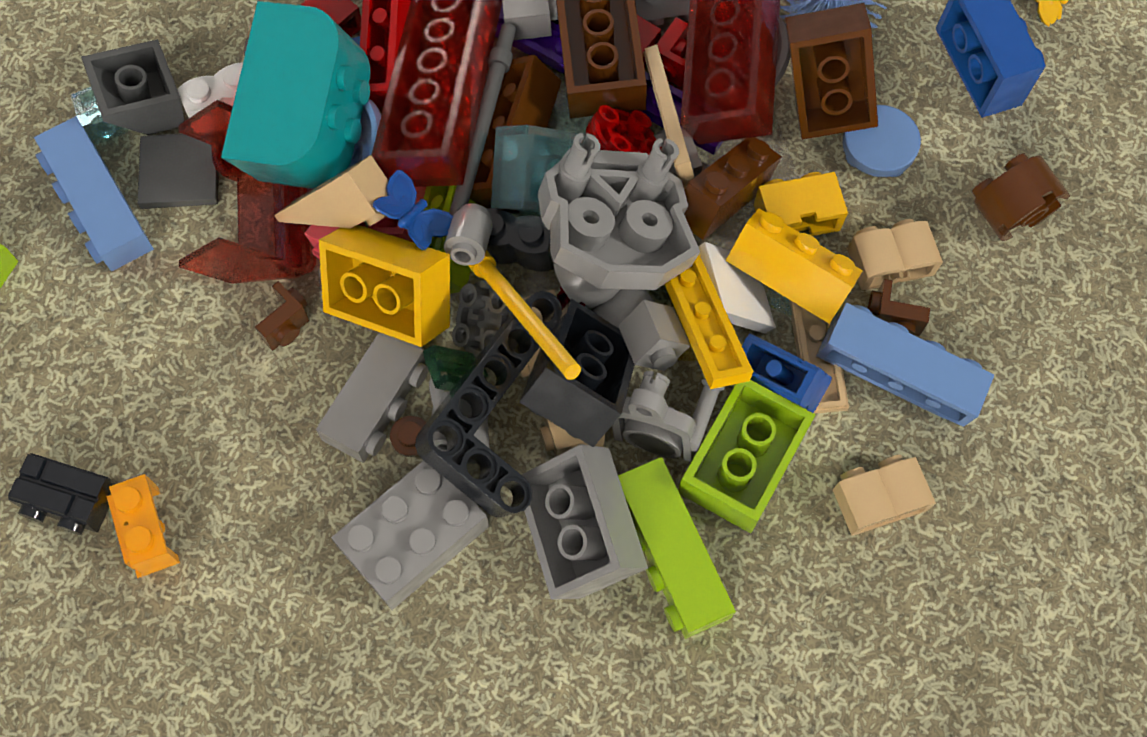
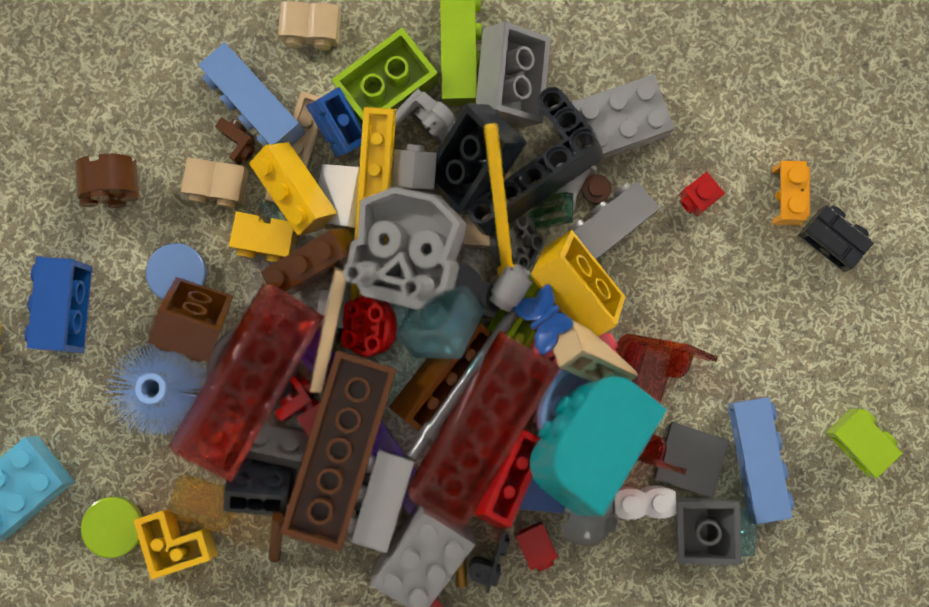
camera: 155 degrees left, 15 degrees up
(268, 482) = (700, 194): none -> red bracket
(284, 323) = (656, 298): reddish brown bracket -> none

